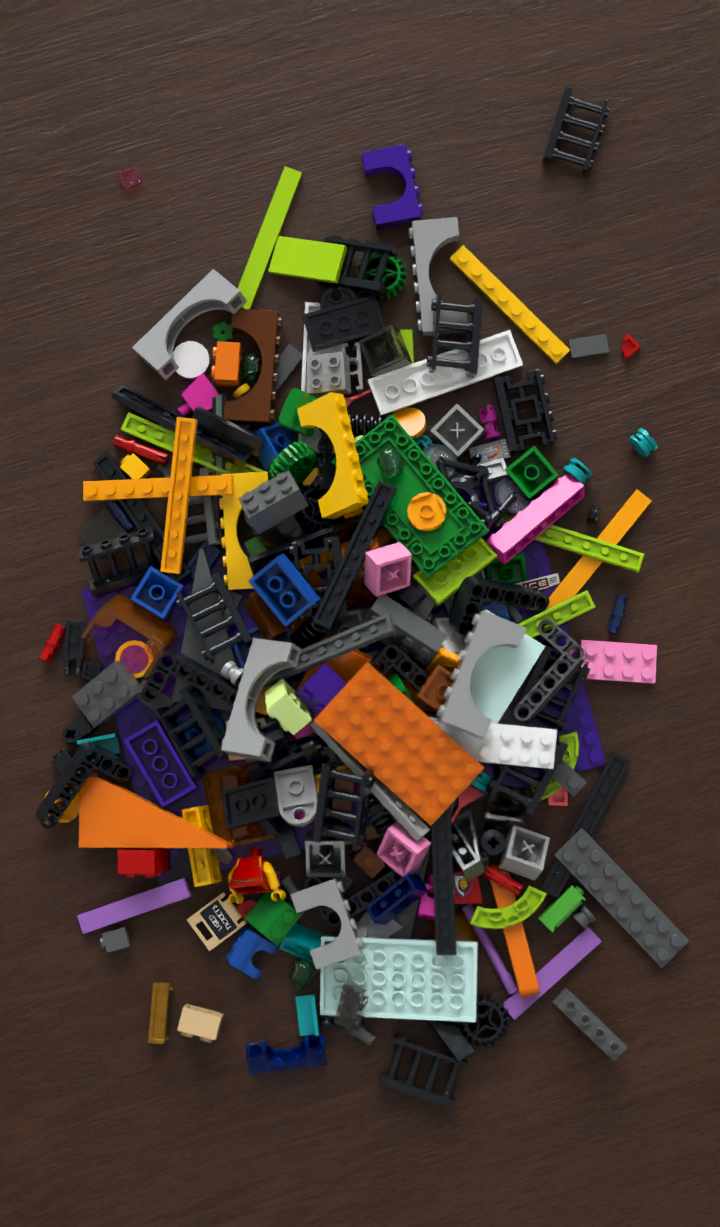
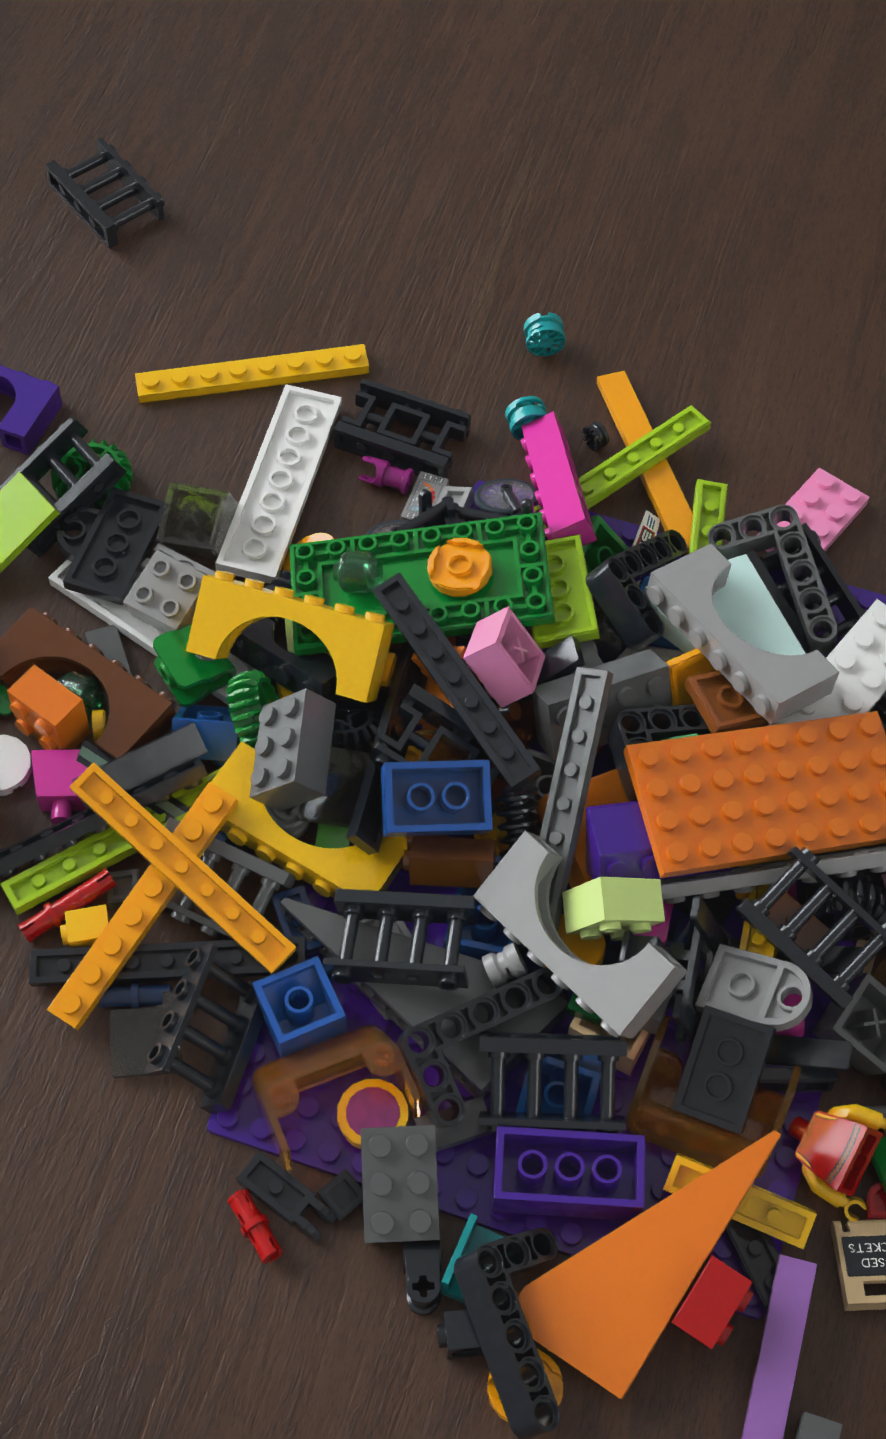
camera: 60 degrees left, 25 degrees down
(222, 855) = (776, 1175): dark grey tile -> none
(427, 239) = (192, 450): light grey arch -> none
(457, 431) = (367, 502): light grey brick -> none
(472, 328) = (253, 409): black fence -> none
(531, 472) = (490, 456): green slope -> none
(588, 346) = (375, 326): dark grey tile -> none
(617, 614) = (747, 484): dark blue pin -> none
(629, 346) = (410, 290): red tile -> none

